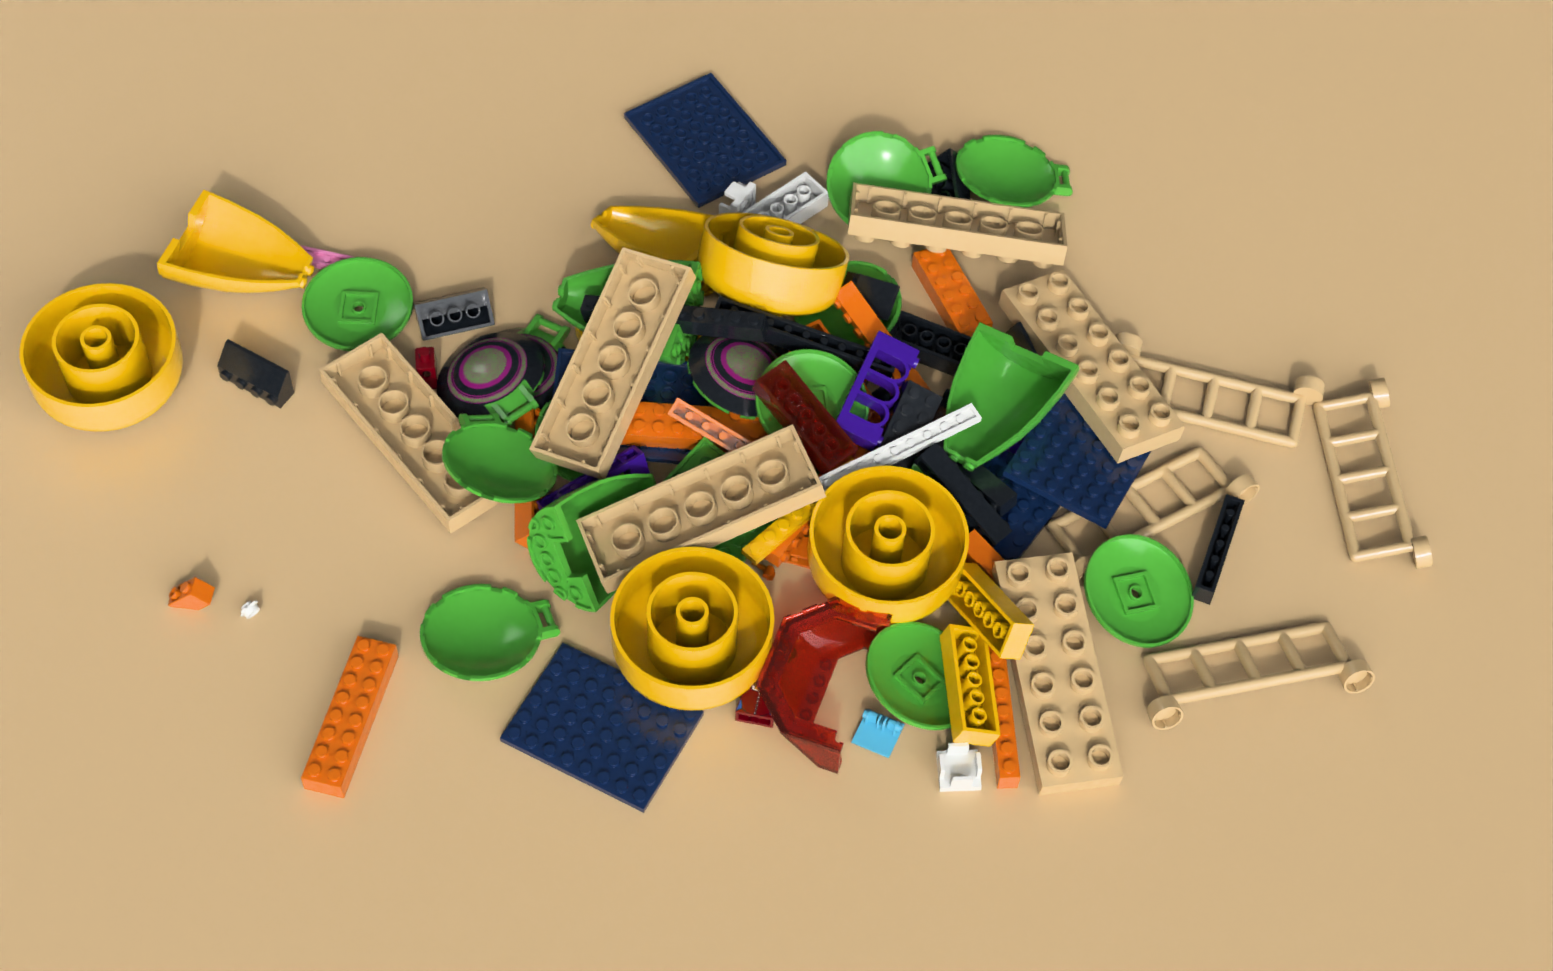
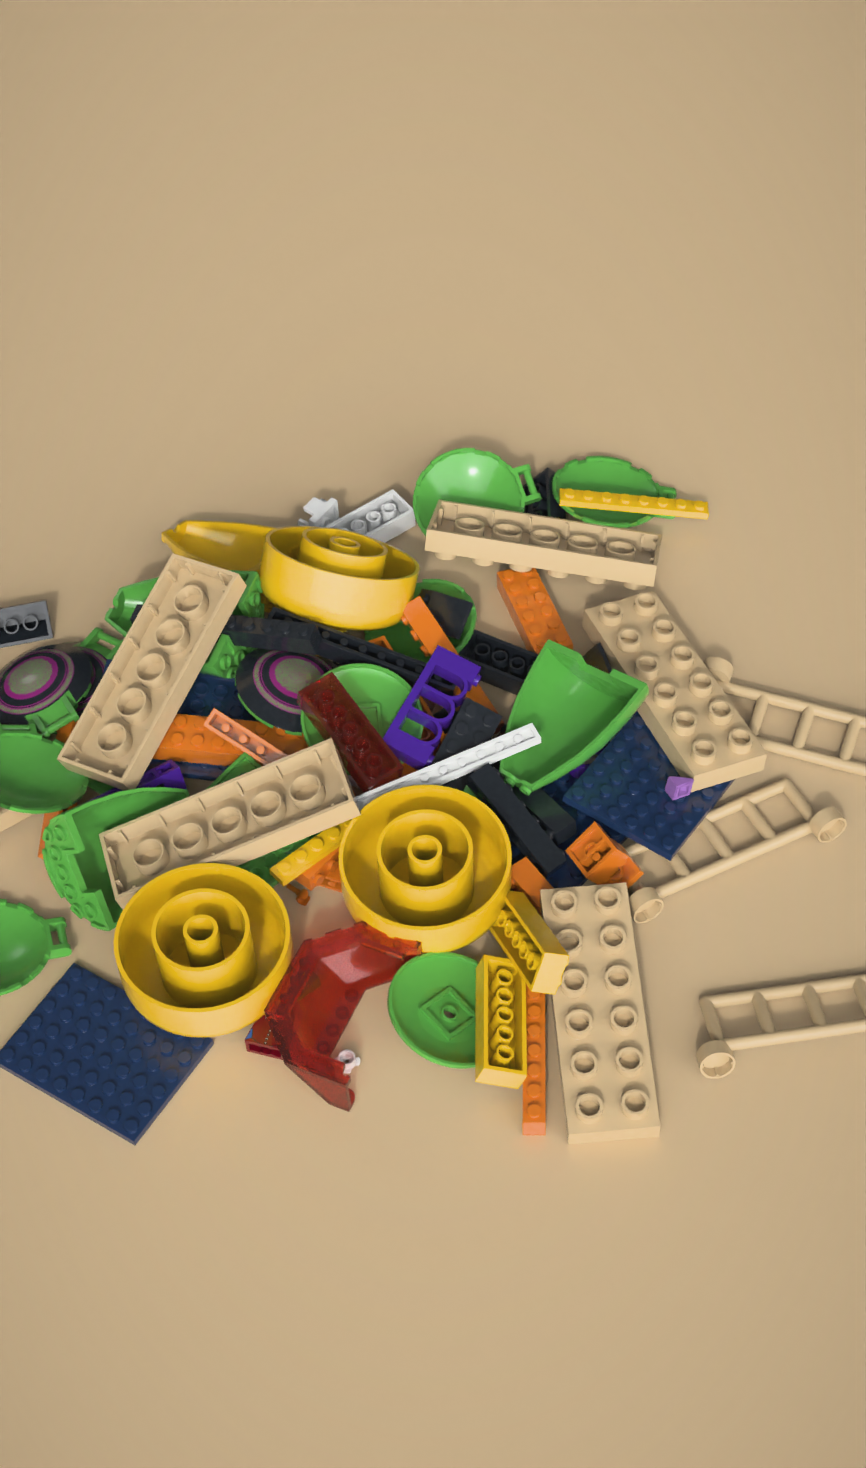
camera: 10 degrees right, 5 degrees down
(704, 139) = (295, 456): dark blue plate -> none
(832, 721) = (348, 1055): none -> white plate
(877, 733) = (398, 1070): medium azure hinge -> none
(959, 768) = (482, 1111): white panel -> none
(1033, 183) = (633, 503): none -> yellow plate
(1045, 529) = (603, 858): none -> orange bracket
(1107, 459) = (678, 787): none -> medium lavender slope
(1157, 576) = (723, 913): bright green dish -> none
(1218, 549) = (793, 886): black brick -> none

